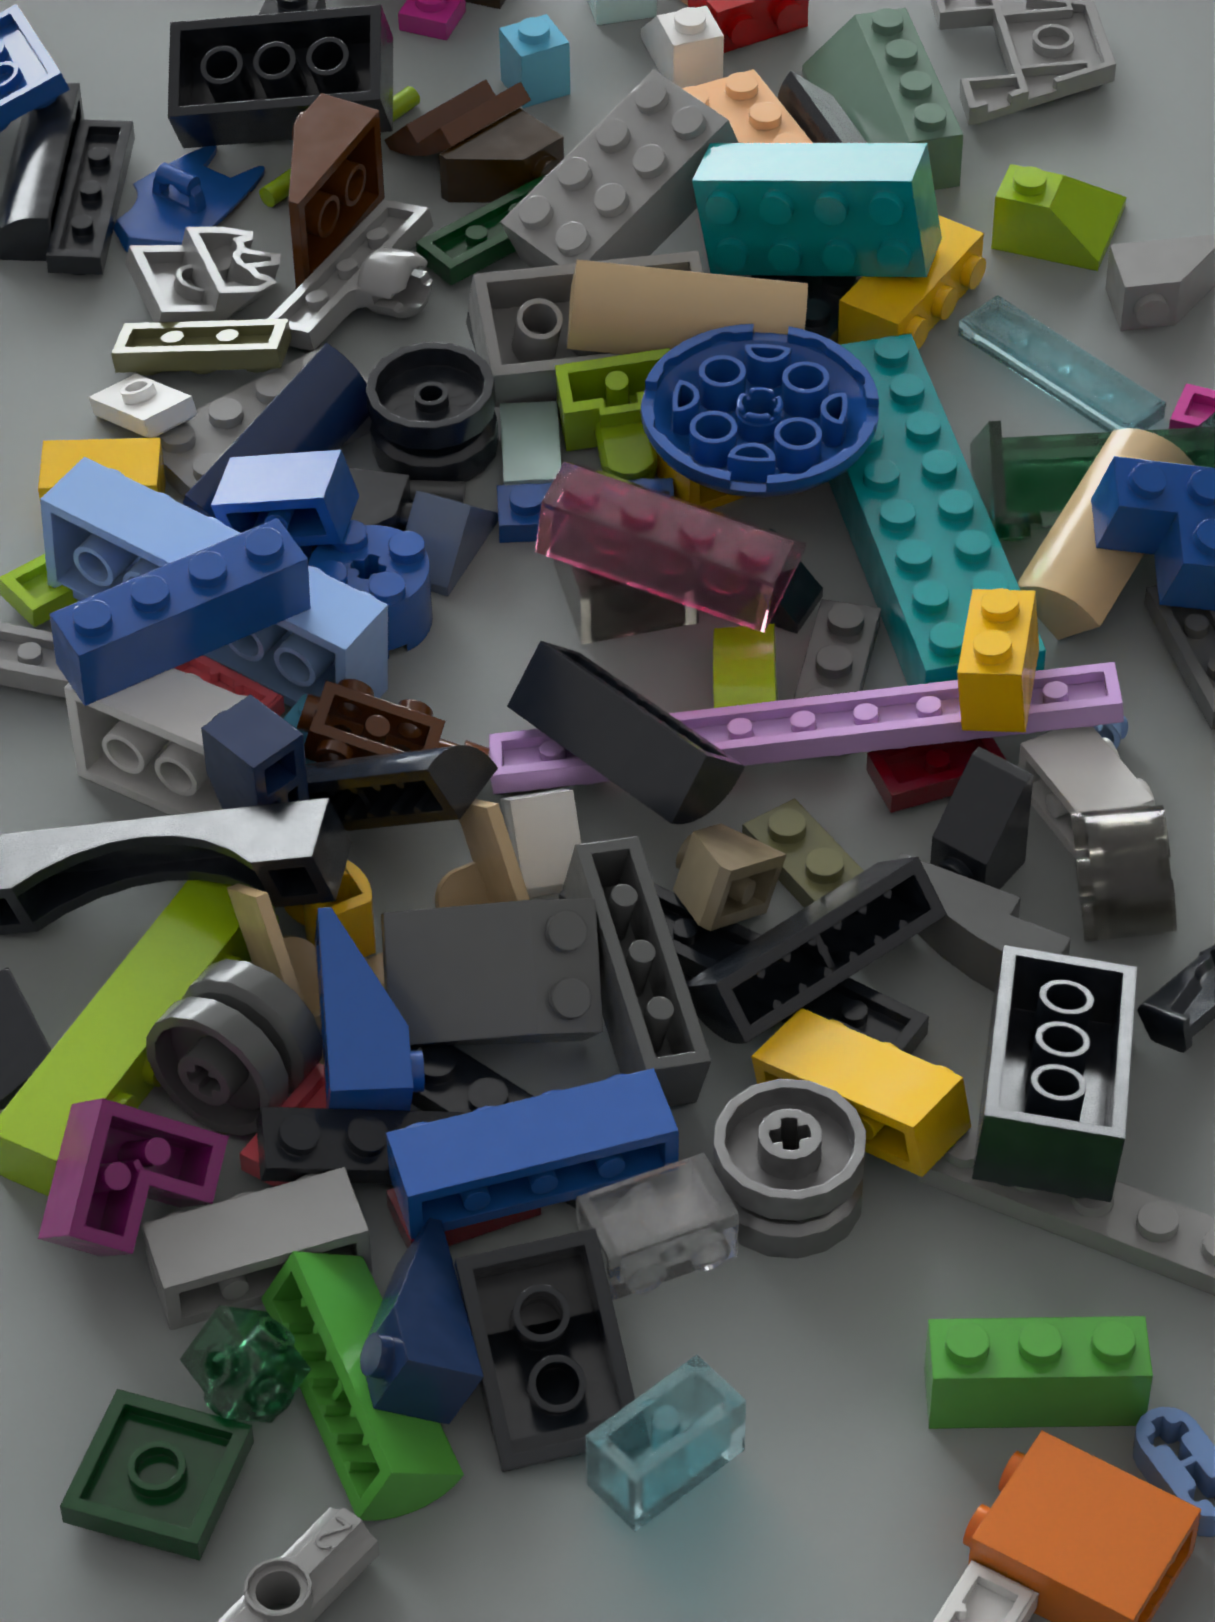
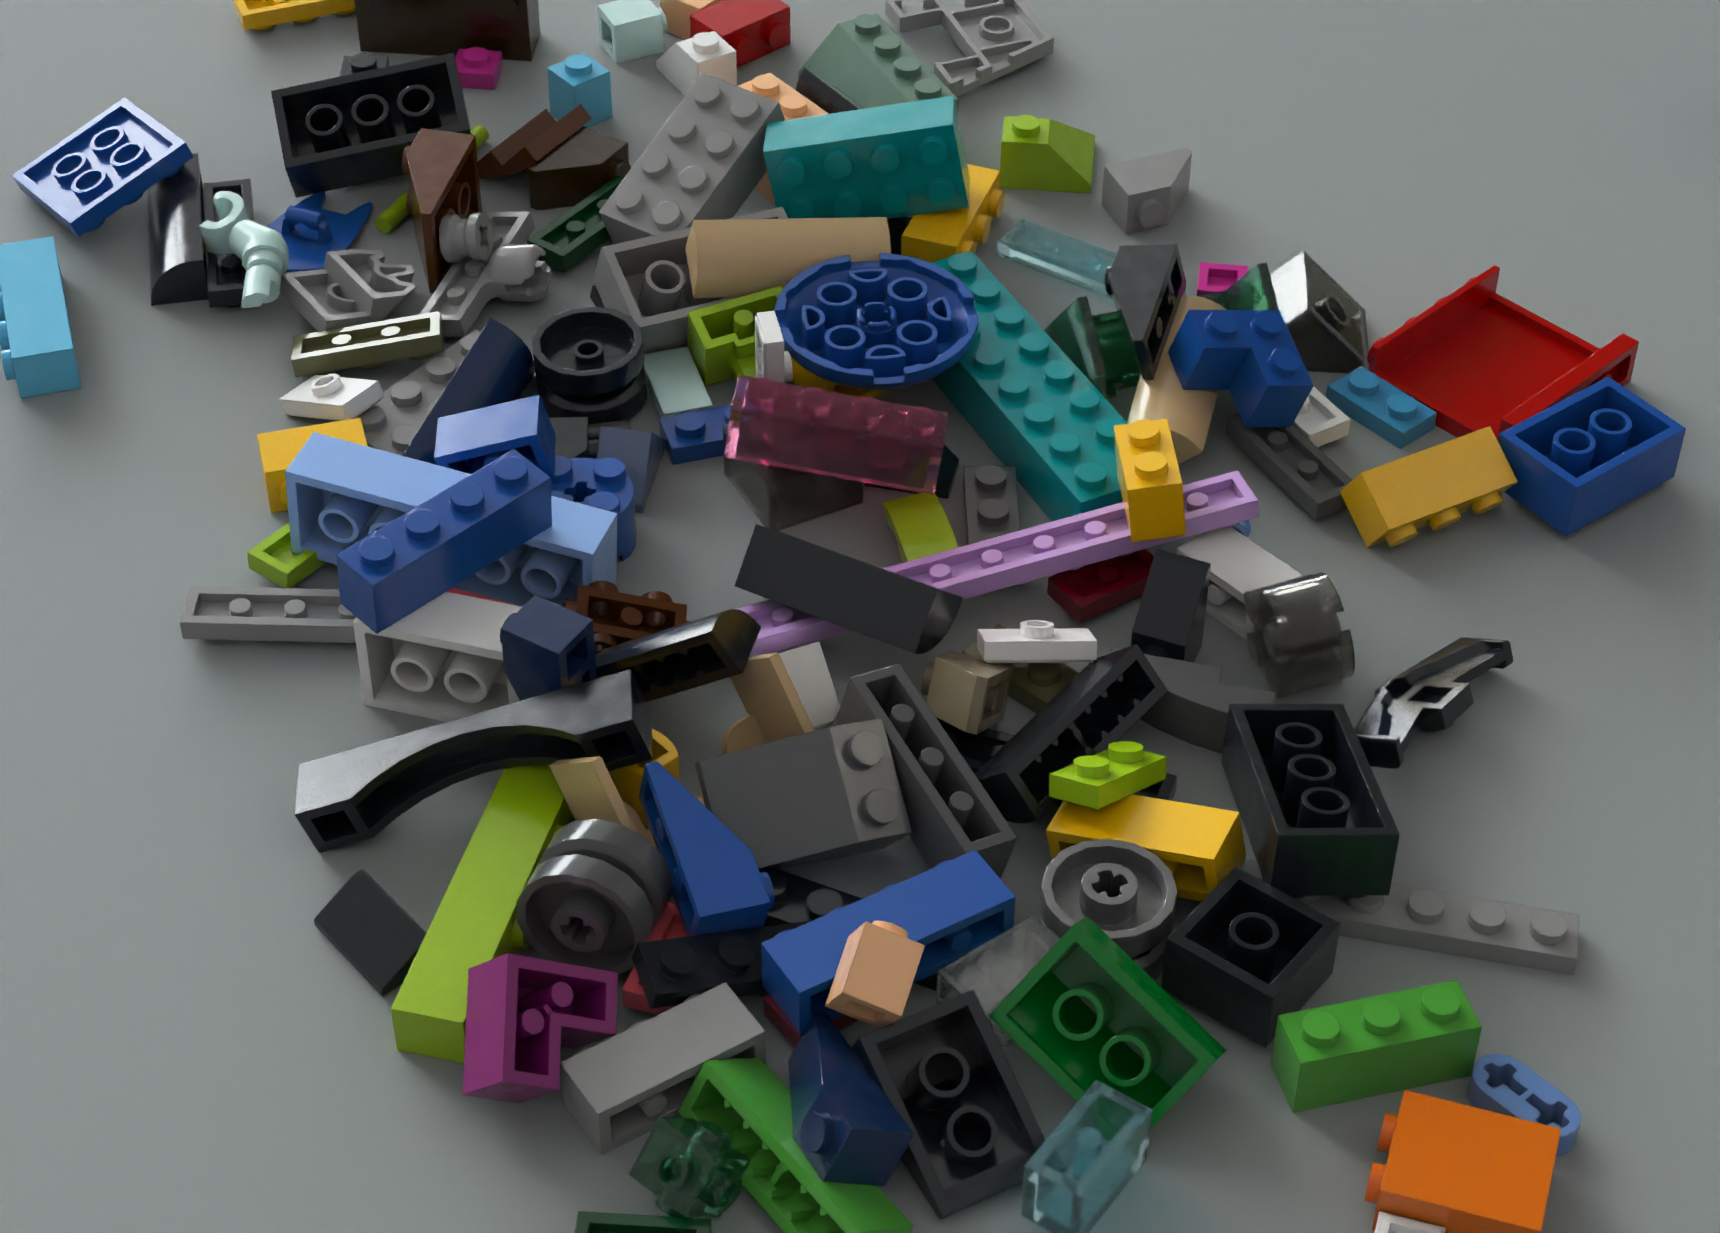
camera: 15 degrees left, 5 degrees down
(111, 210) = (259, 247): none -> light aqua piece
(341, 232) = (466, 237): none -> light grey wheel
(491, 1190) = (875, 974): none -> light nougat brick
(626, 447) = (770, 356): none -> white plate
(738, 1293) = (1102, 1018): none -> green slope
(817, 833) = (1037, 643): none -> white plate
(837, 1006) = (1107, 775): none -> lime plate
(930, 1241) = (1250, 955): none -> black brick
(1085, 425) = (1146, 293): none -> black slope

